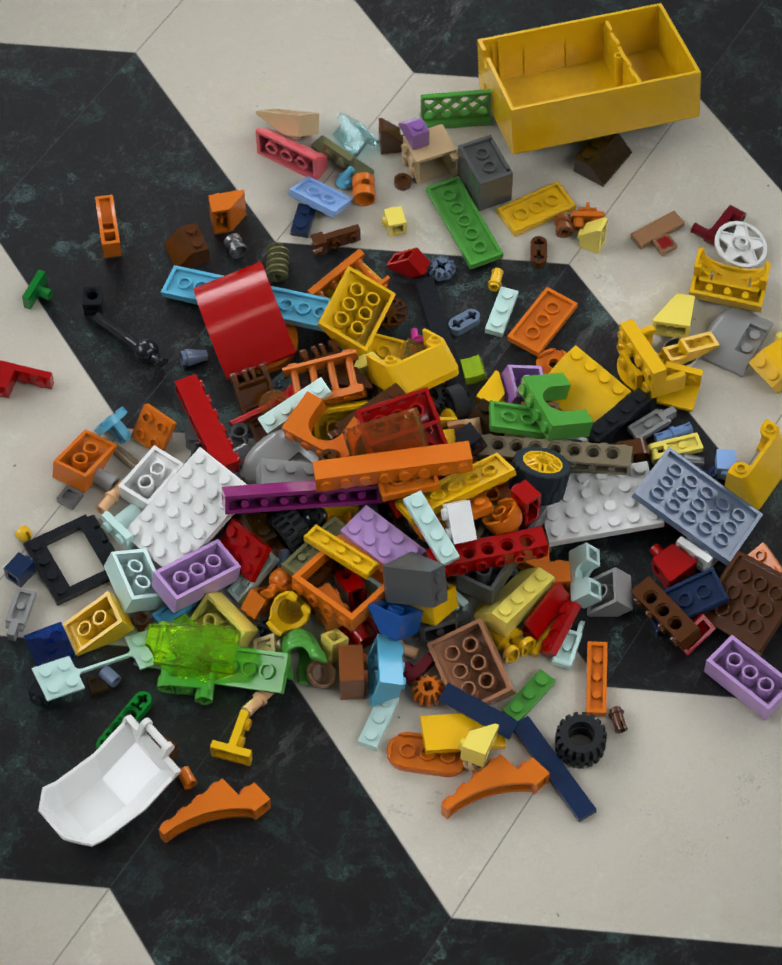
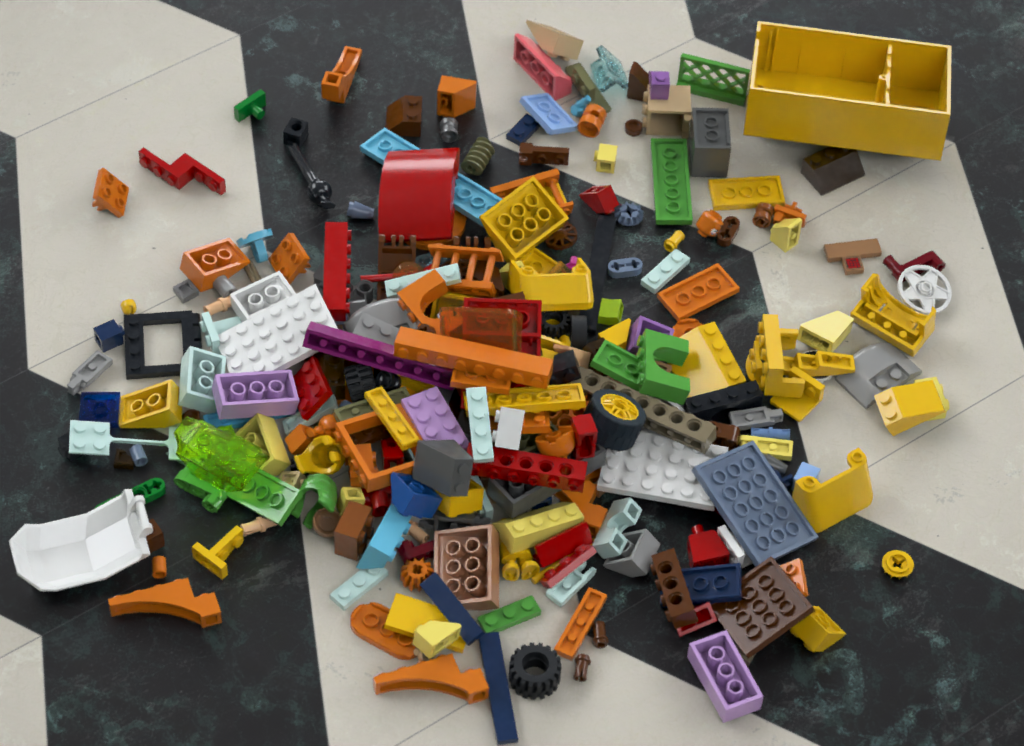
camera: 20 degrees right, 5 degrees down
(520, 251) = (709, 223): none -> orange head
(619, 683) = (600, 639): none -> reddish brown pin

